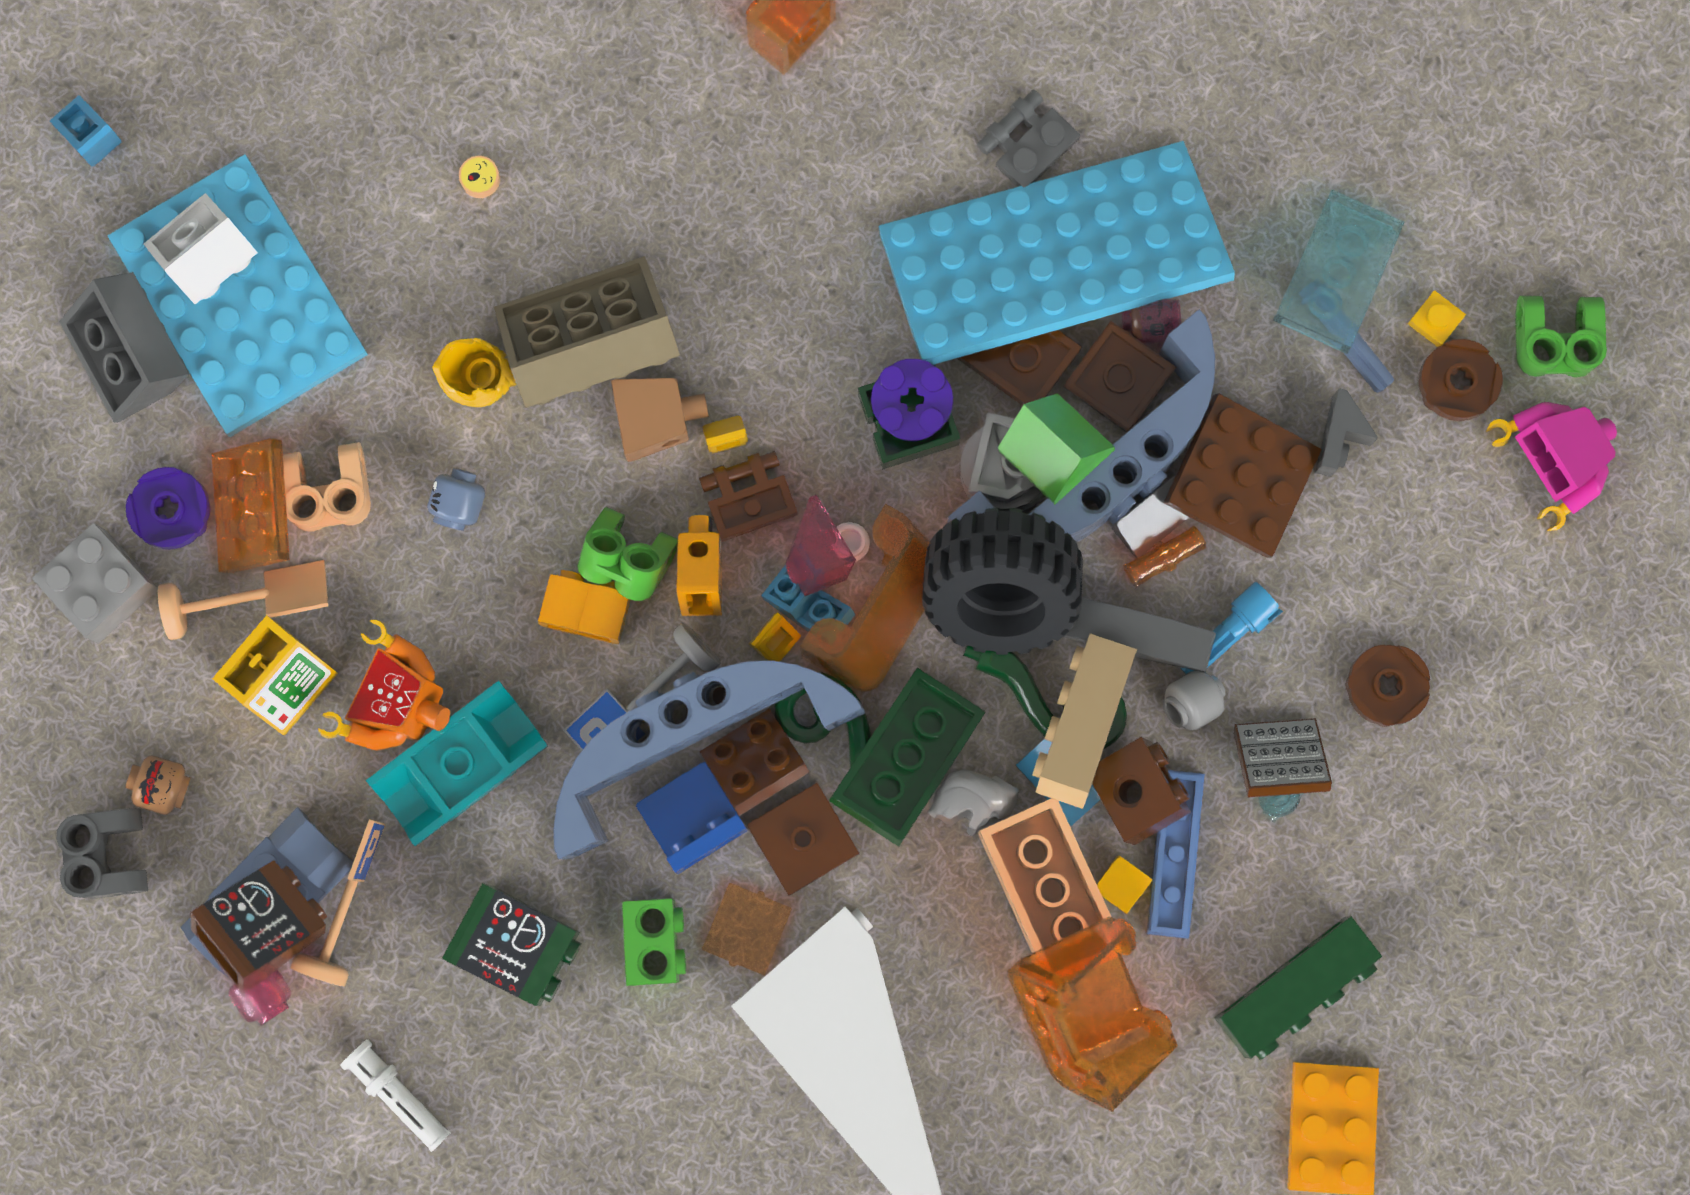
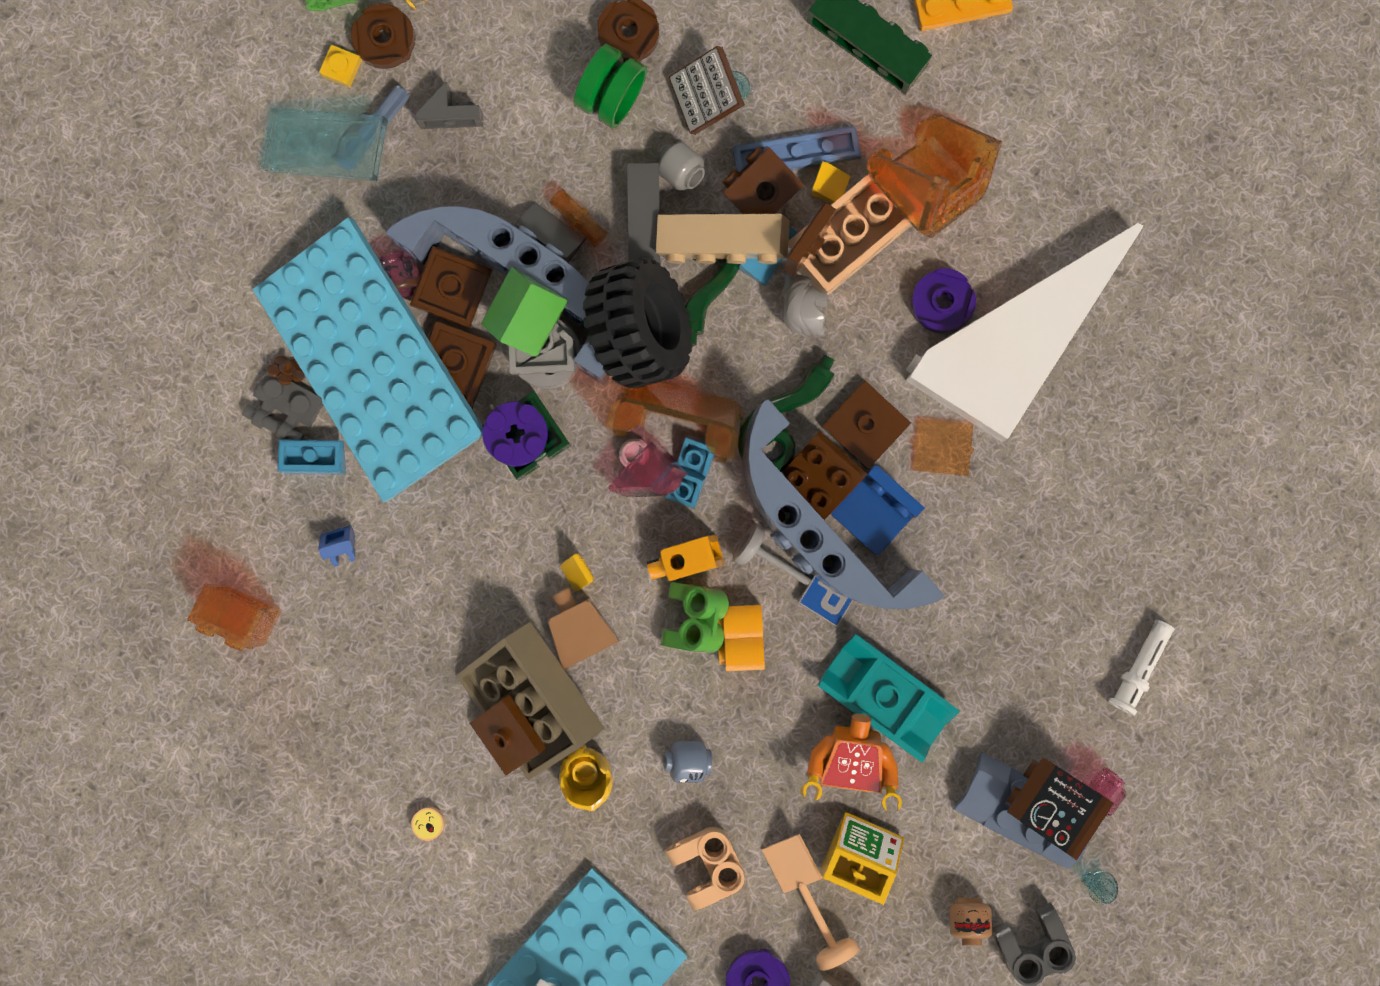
camera: 105 degrees left, 5 degrees up
(147, 959) = (1101, 886): none -> clear light blue plate
(250, 506) = (738, 919): clear orange plate -> none
(321, 967) = (1070, 750): light nougat piece -> none
(512, 946) = (1011, 613): slope -> none
(553, 294) = (508, 735): none -> reddish brown plate
(640, 943) = (977, 518): bright green brick -> none
(751, 507) = (629, 535): reddish brown plate -> none
(775, 638) = (723, 489): yellow slope -> none
(843, 159) = (337, 543): none -> blue tile
(907, 757) = (786, 362): dark green plate -> none
(937, 1006) = (959, 292): none -> dark purple plate
(957, 156) = (311, 457): none -> dark azure slope
(1044, 818) = (810, 240): none -> reddish brown plate
(1071, 153) = (286, 370): none -> reddish brown plant
(1242, 475) = (503, 174): reddish brown plate -> none
(1250, 612) = (604, 143): dark azure piece -> none
(1317, 637) = (610, 85): none -> green wheel

